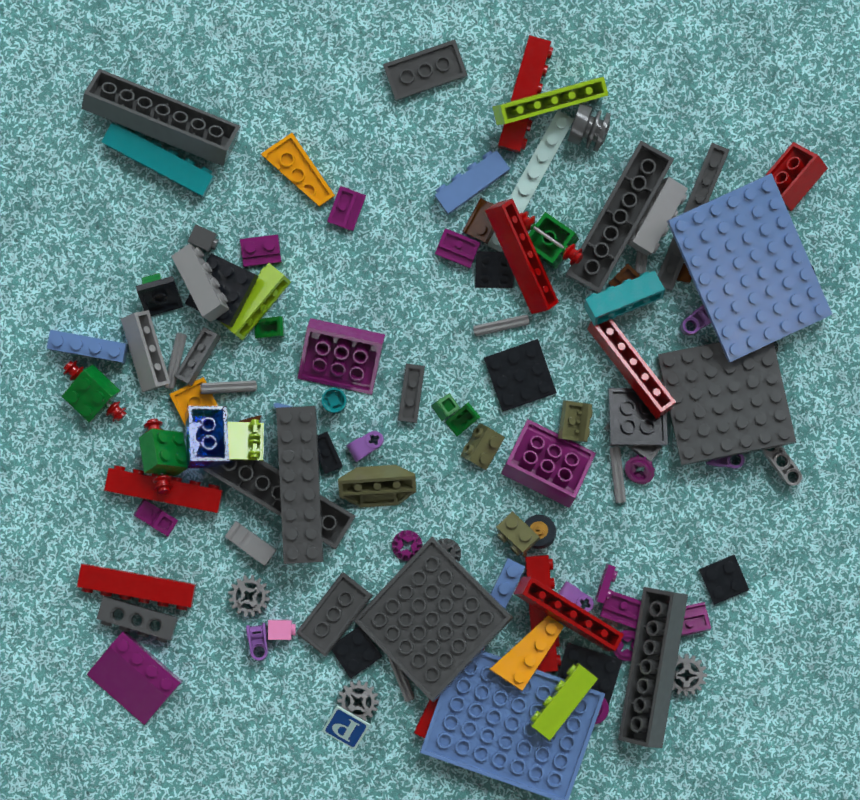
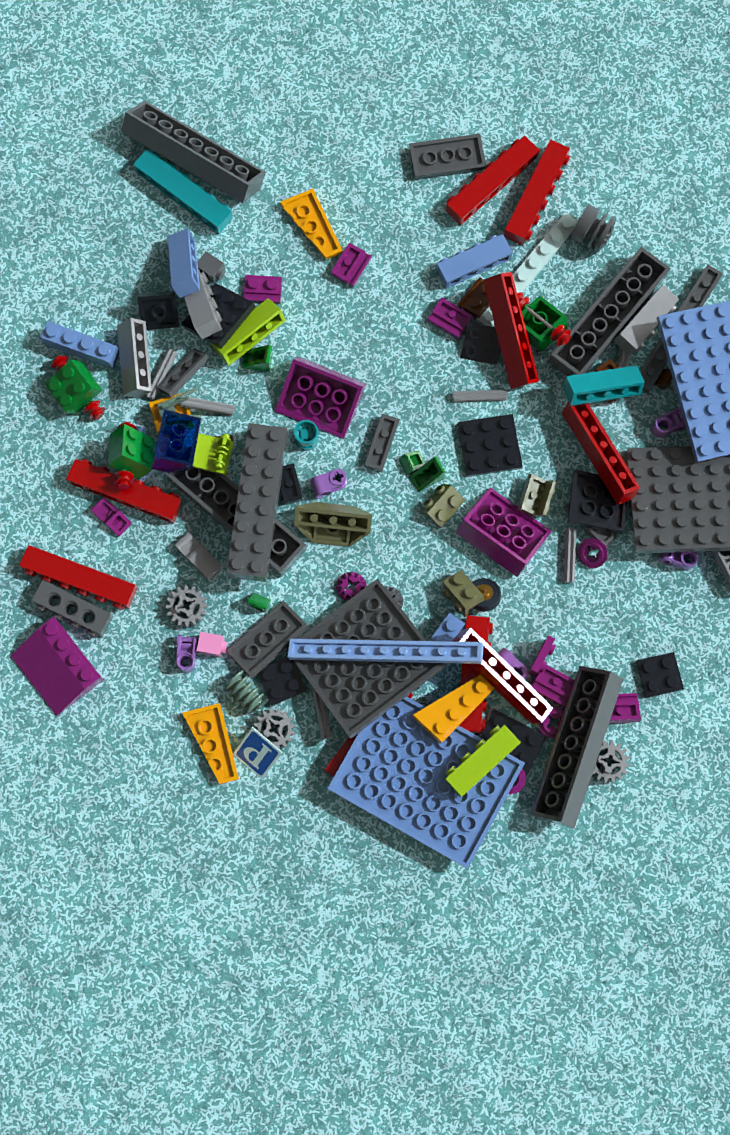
camera: 10 degrees right, 10 degrees down
(175, 244) = (183, 263): none -> medium blue brick
(190, 398) = (169, 404): none -> sand green plant
(297, 715) = (212, 736): none -> light orange wing
(319, 577) = (259, 602): none -> green slope
(324, 671) = (245, 693): none -> sand green piece
(452, 612) = (386, 651): none -> light blue plate
(476, 89) = (491, 180): none -> red brick
(550, 101) = (560, 196): lime brick -> none

